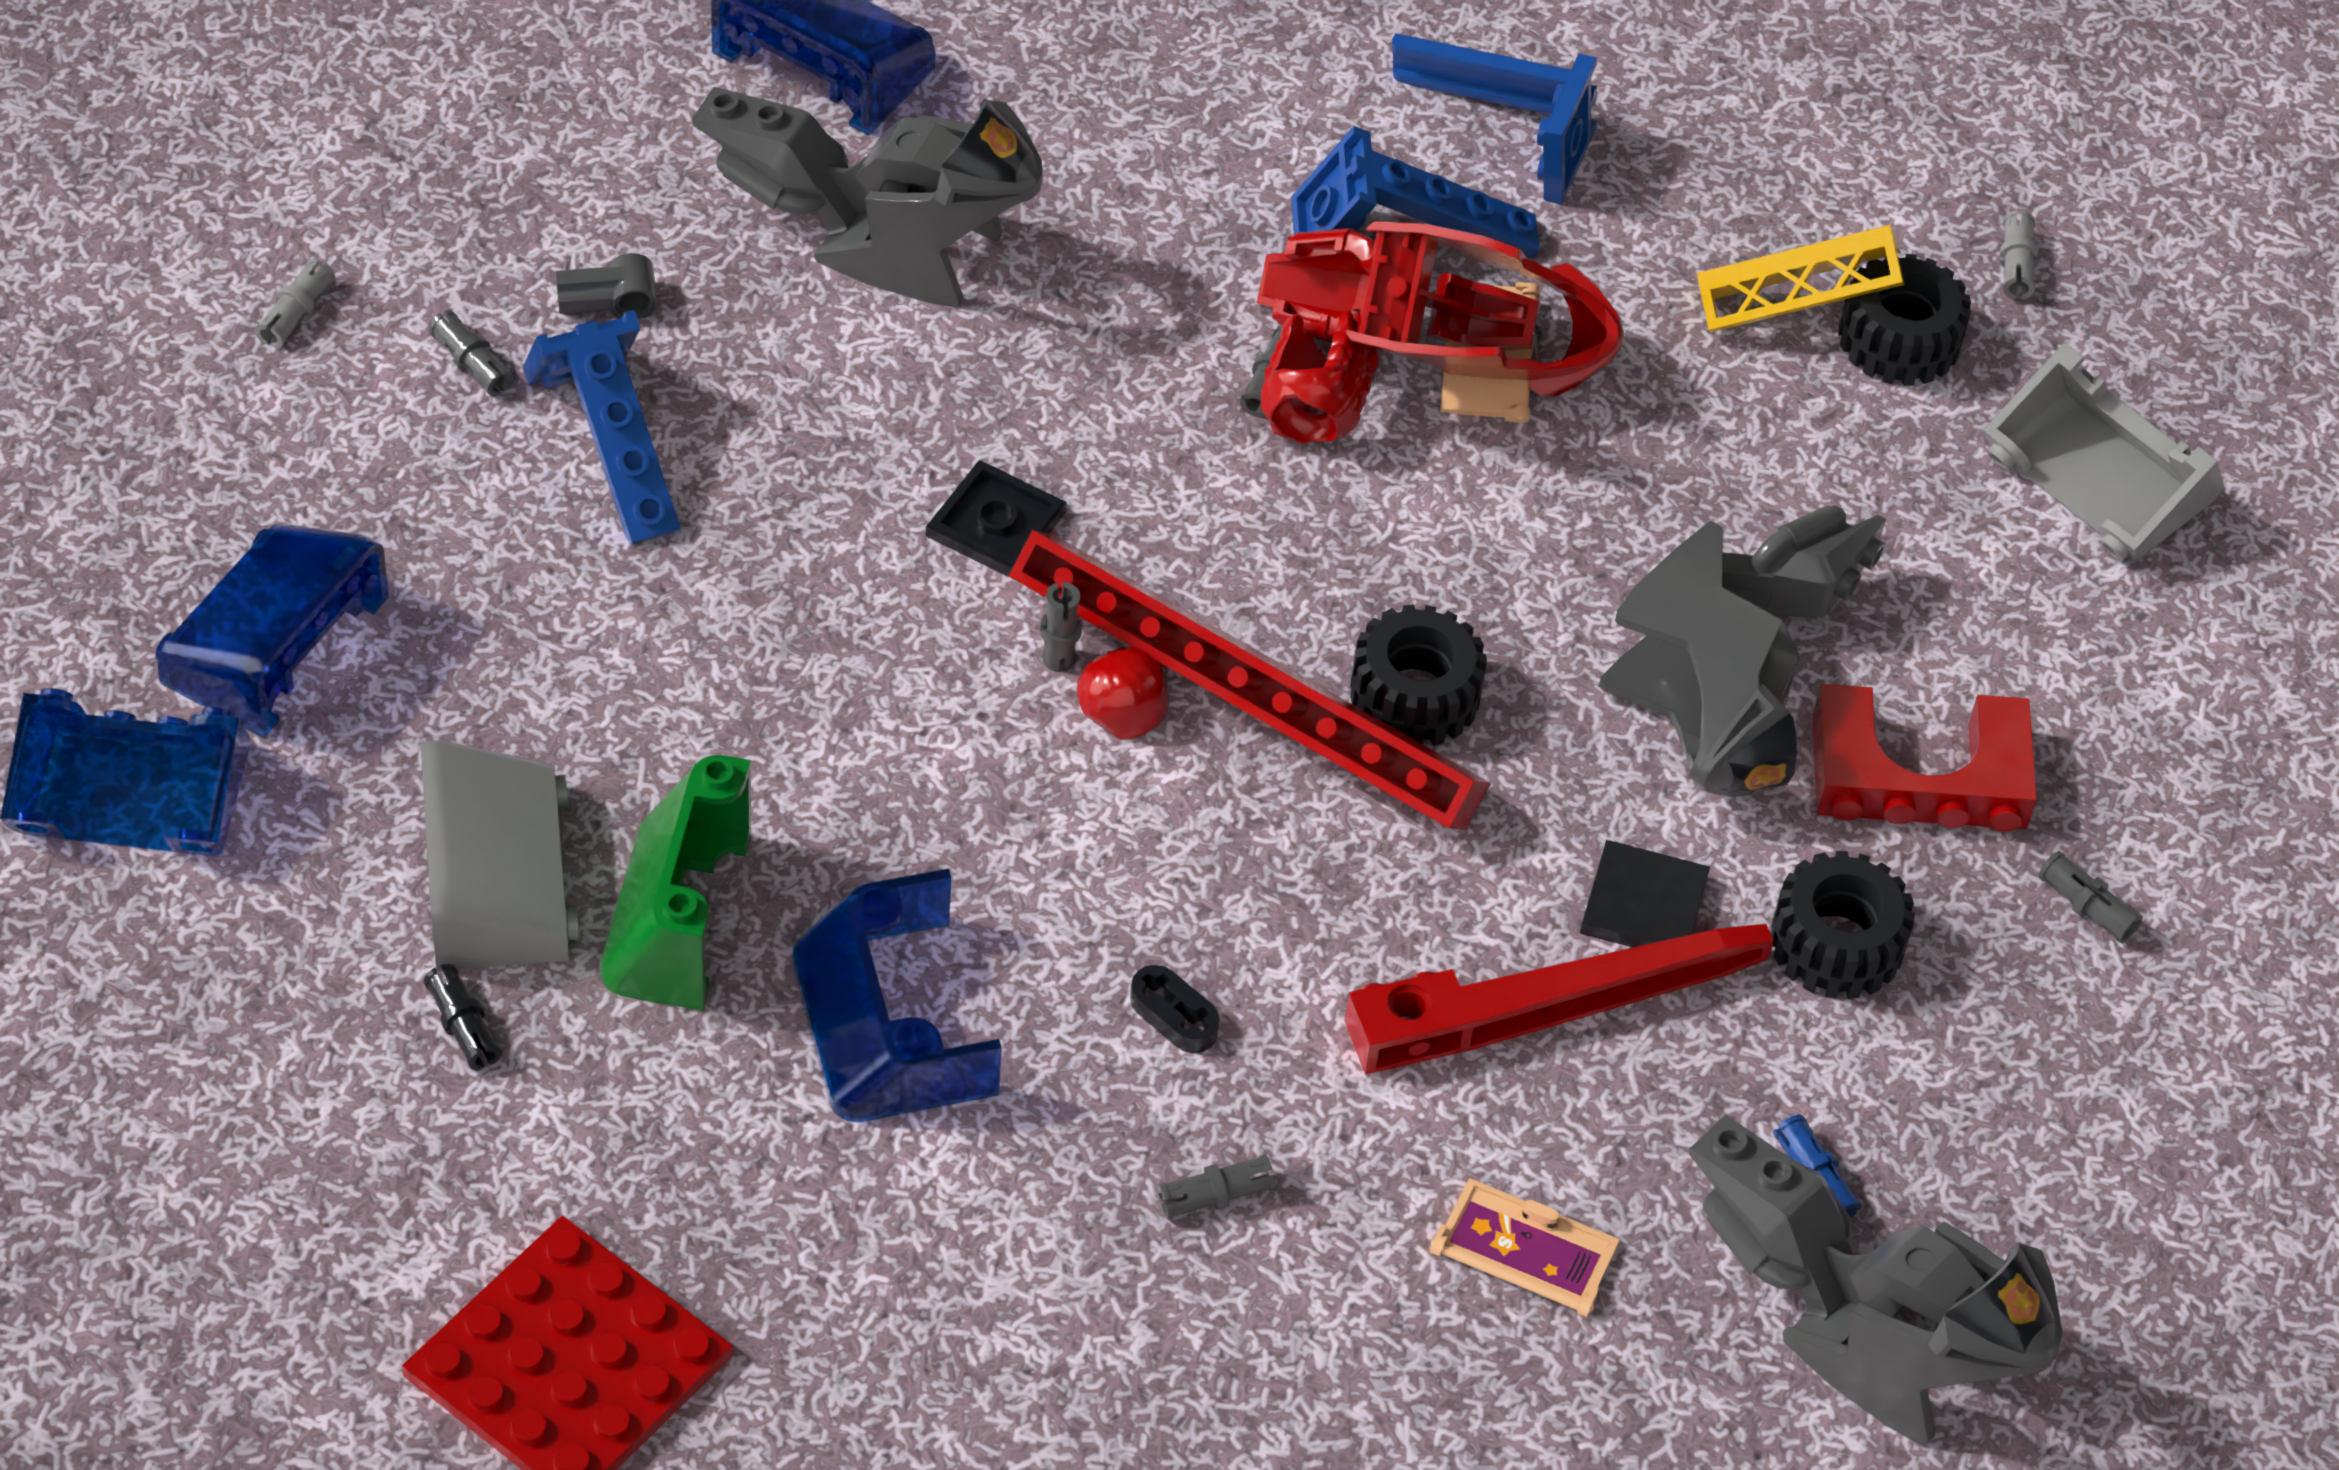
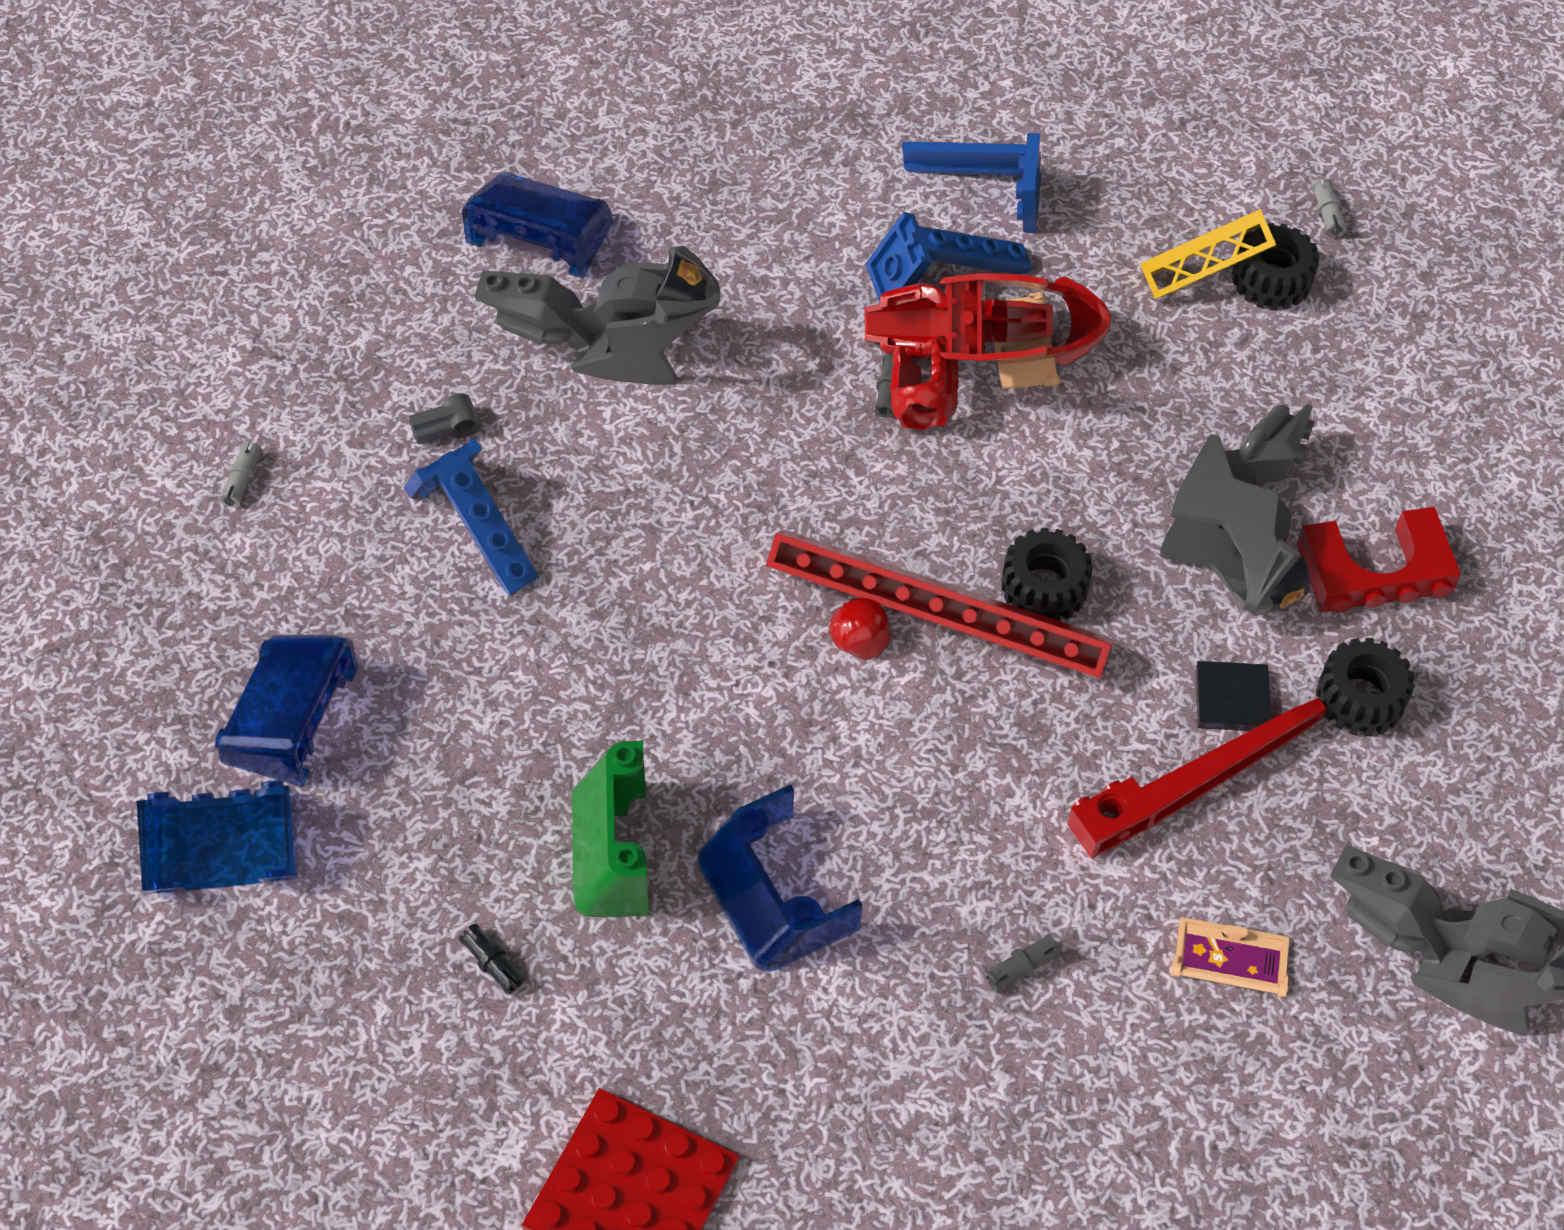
camera: 10 degrees left, 5 degrees up
(471, 352) = (367, 484): dark grey pin -> none
(494, 858) = (484, 841): light grey windscreen -> none
(994, 517) = (742, 525): black tile -> none
(1061, 627) = (810, 594): dark grey pin -> none
(1169, 1013) = (957, 842): black beam -> none
(1804, 1147) = (1394, 852): blue pin -> none
(2090, 897) = (1509, 630): dark grey pin -> none
(2101, 458) = (1425, 334): light grey windscreen -> none

